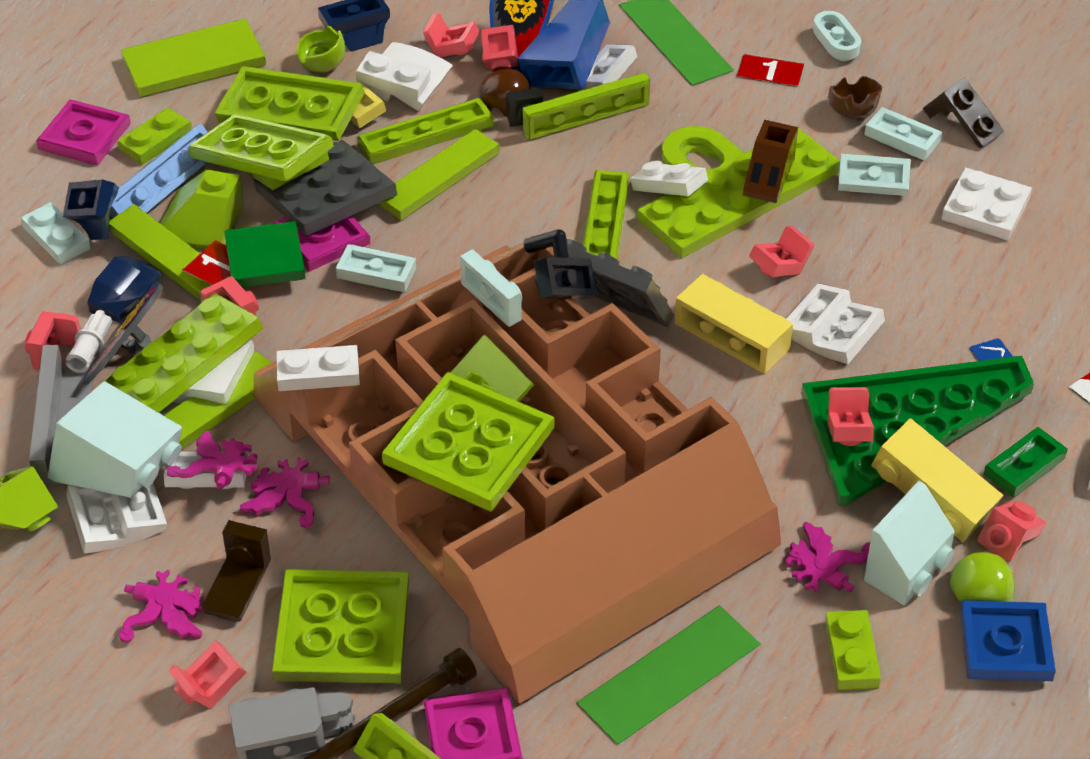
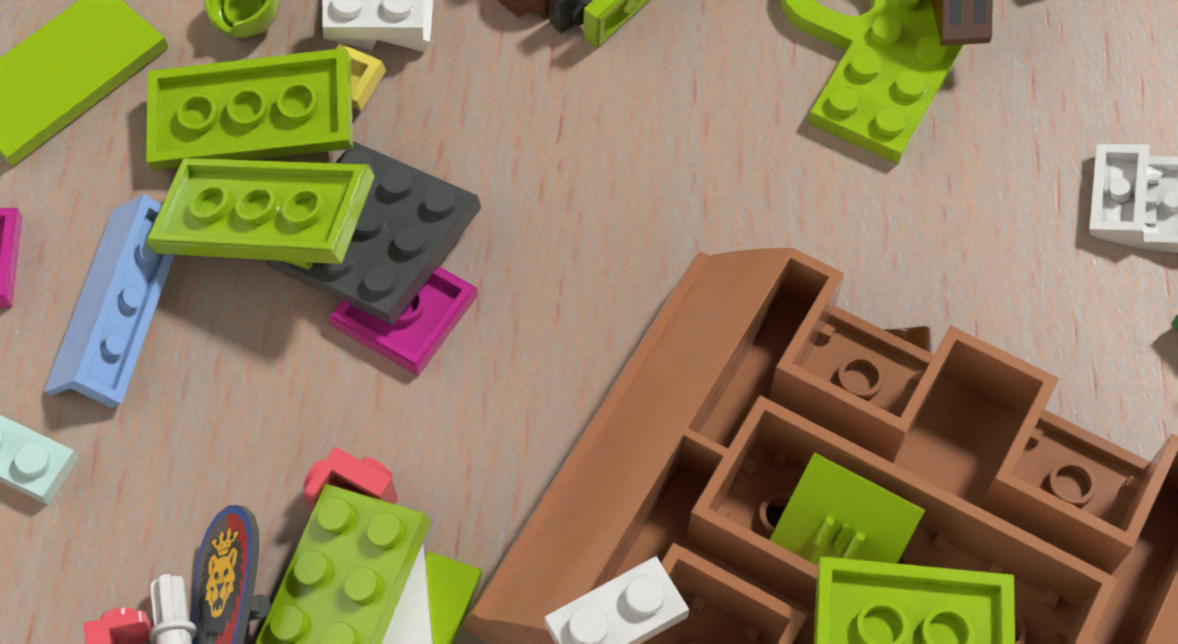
camera: 25 degrees left, 15 degrees up
(90, 206) = (56, 398): dark blue slope -> none
(121, 286) = (174, 514): dark blue slope -> none
(154, 136) = (72, 228): lime plate -> none
(157, 246) = (210, 430): lime tile -> none
(205, 208) = (216, 341): lime slope -> none
(210, 264) = (288, 423): red sticker -> none
(265, 254) = (354, 383): green tile -> none
(376, 268) = (518, 341): light aqua plate -> none
(425, 131) = (452, 83): lime tile -> none
(440, 173) = (515, 145): lime tile -> none
(491, 287) = (804, 382): light aqua plate -> none
(560, 275) = (865, 304): black plate -> none
(606, 212) = (775, 149): lime tile -> none
(624, 287) = (884, 257): dark grey plate -> none
(669, 179) = (829, 51): white plate -> none
(733, 323) = (1037, 250): light yellow brick -> none
(784, 257) = (1035, 115): coral bracket -> none

